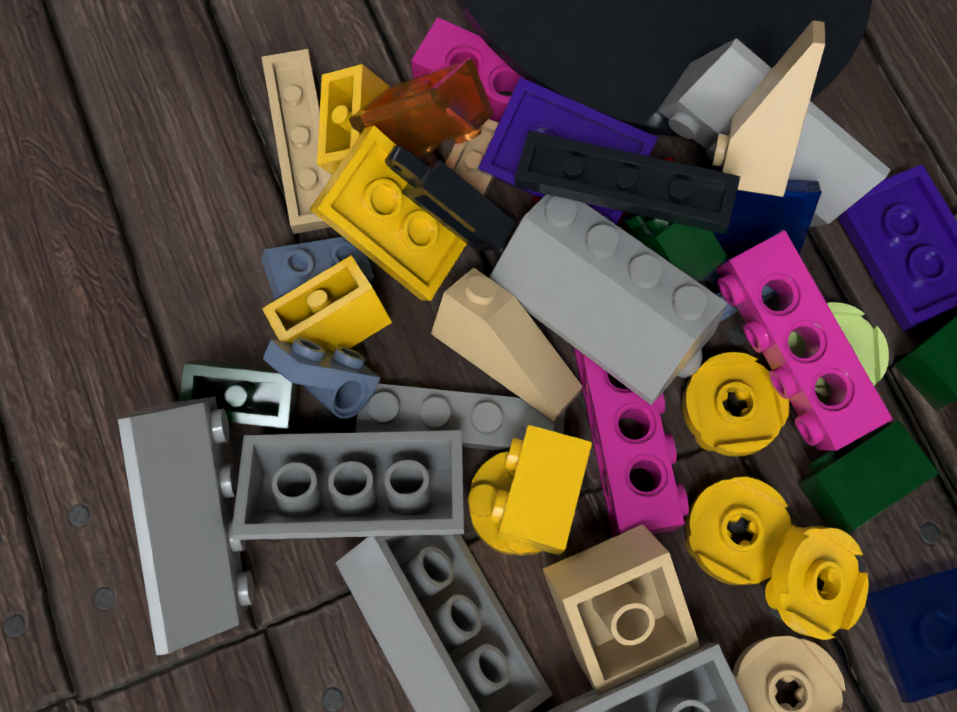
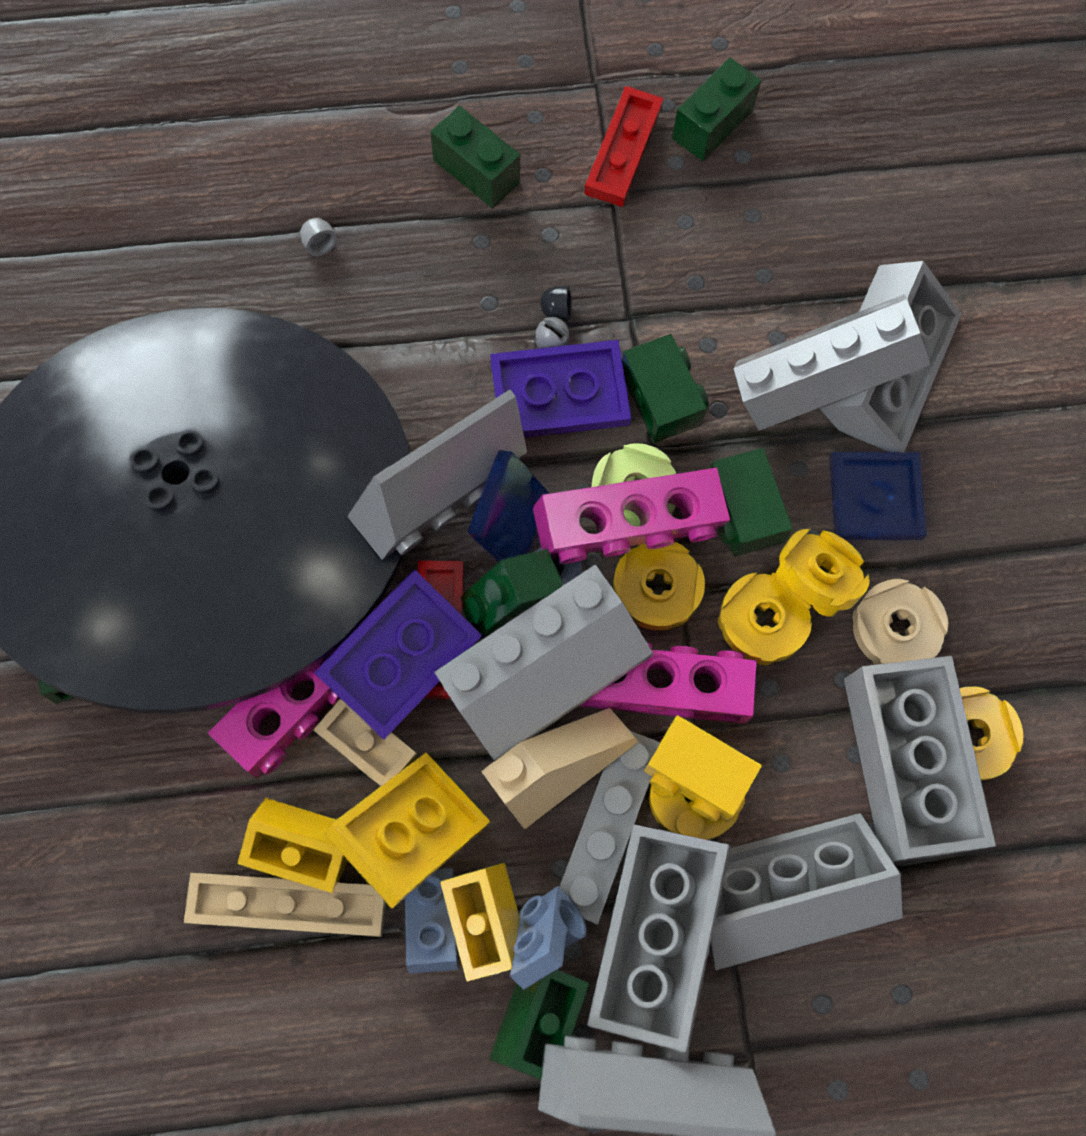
camera: 75 degrees left, 0 degrees up
(429, 109) = (309, 770): clear orange slope -> none
(452, 202) = (420, 770): black piece -> none
(622, 608) = (812, 734): tan brick -> none
(627, 182) = (462, 613): black fence -> none
(771, 119) = (450, 473): tan slope -> none

